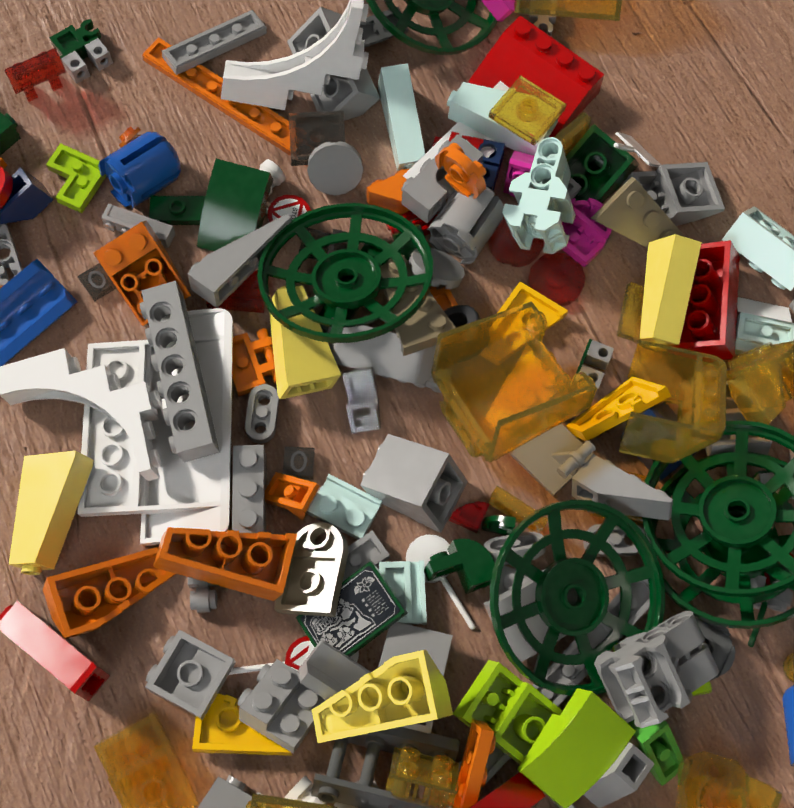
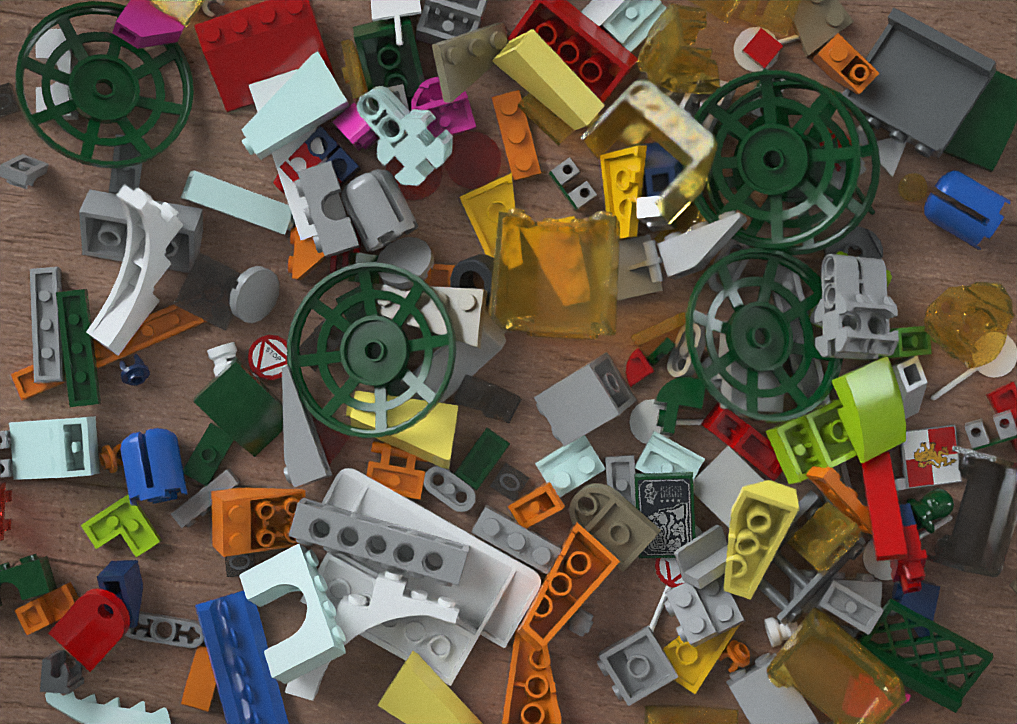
camera: 60 degrees left, 20 degrees up
(64, 358) = (319, 636): none -> light aqua arch
(117, 96) = (54, 448): none -> light aqua slope
(207, 67) = (78, 348): none -> dark green plate
(213, 120) = (134, 374): none -> dark blue plate
(256, 770) = (738, 653): none -> orange plate
(305, 426) = (482, 458): none -> dark green plate
(463, 173) = (353, 197): orange plate -> none
(466, 649) = (743, 440): none -> red slope
(527, 110) = (307, 91): clear yellow plate -> none
(599, 302) = (516, 136): none -> orange plate
(613, 434) = (649, 214): none -> flat silver piece

